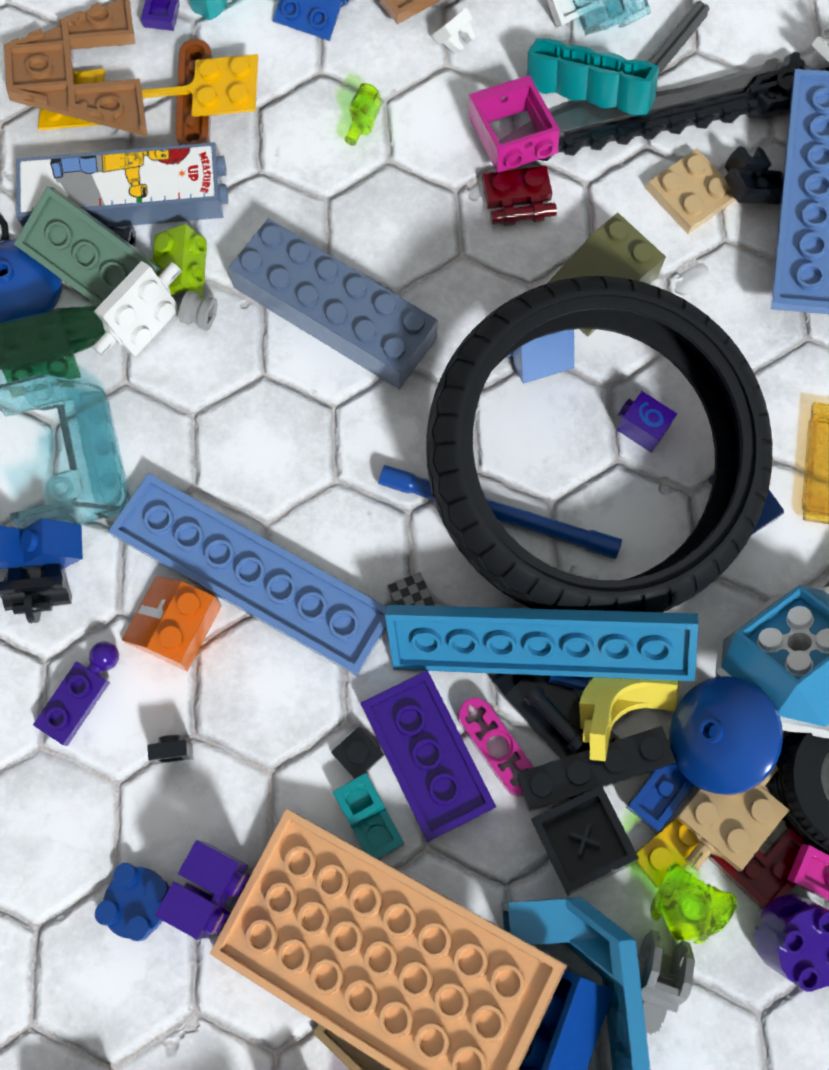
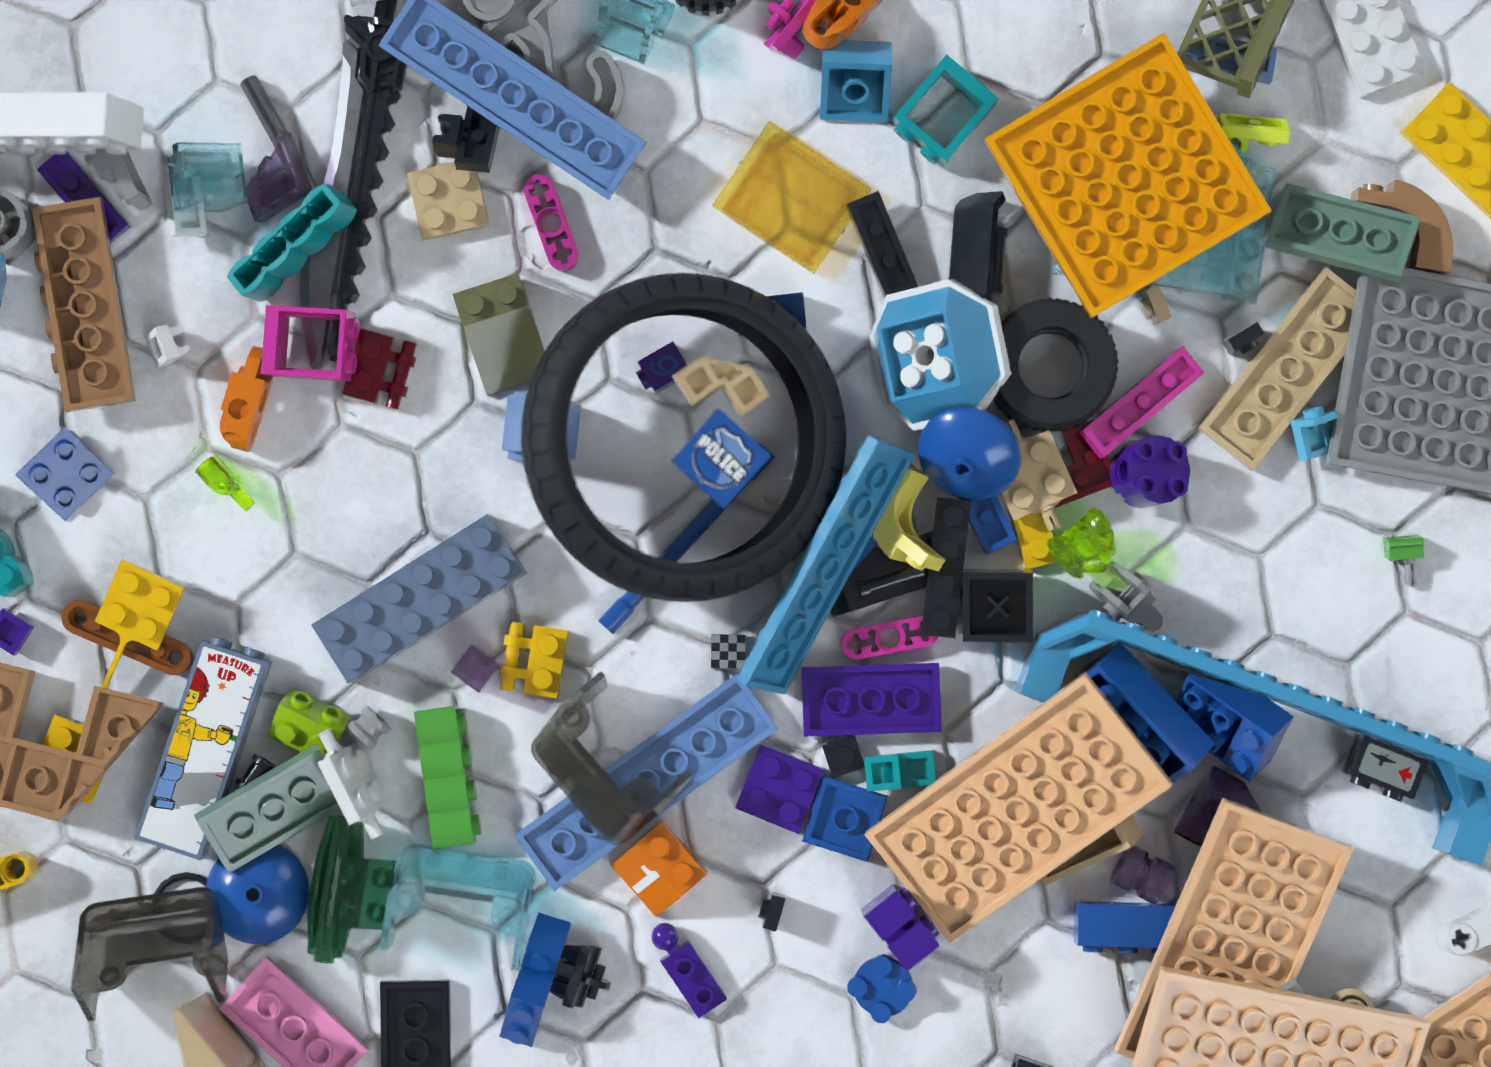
camera: 65 degrees left, 15 degrees up
(174, 394) = (445, 776): none -> bright green brick
(218, 558) = (609, 810): none -> clear smoke windscreen
(291, 375) = (476, 668): none -> clear purple brick
(296, 780) = (842, 817): none -> blue tile
(297, 705) = (779, 789): none -> dark purple plate
(325, 435) = (544, 661): none -> yellow plate
(434, 102) = (245, 402): none -> orange piece
(600, 477) = (720, 458): none -> tile
(641, 47) = (279, 180): none -> clear purple wing
(675, 431) = (736, 380): none -> tan tile
(724, 265) = (534, 202): none -> dark pink beam

